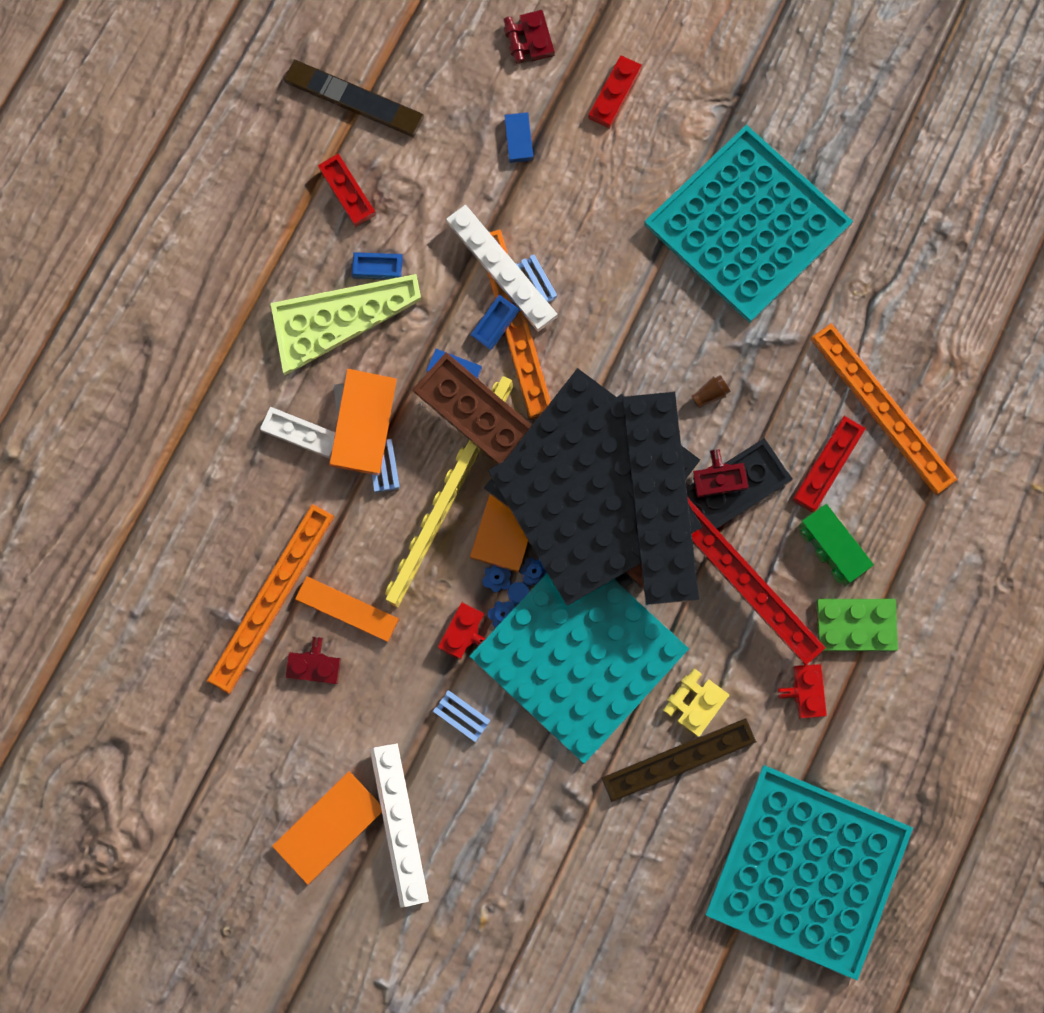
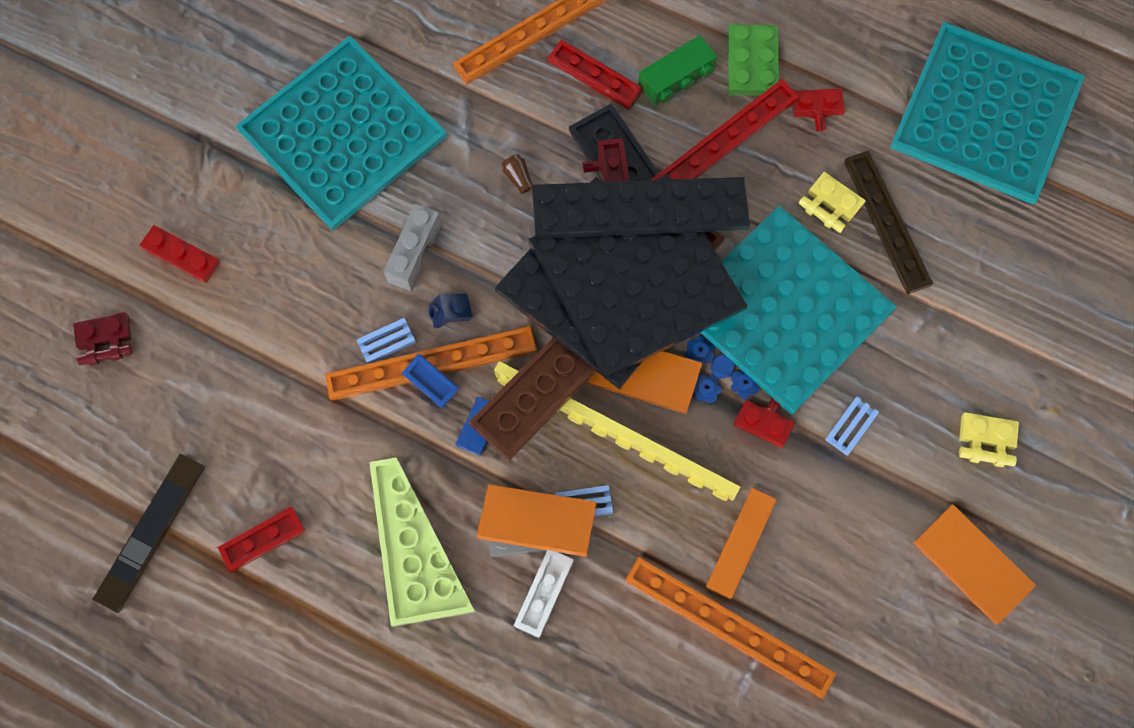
camera: 90 degrees left, 5 degrees down
(313, 665) = (802, 579): dark red plate -> none
(377, 266) = (354, 507): blue tile -> none
(399, 825) = (968, 490): white plate -> none
(458, 849) = (988, 431): none -> light yellow plate
(501, 268) = (369, 372): white plate -> none
(518, 137) = (219, 353): blue tile -> none
(566, 336) = (450, 309): none -> dark blue bracket
(640, 299) = (406, 257): none -> light grey arch

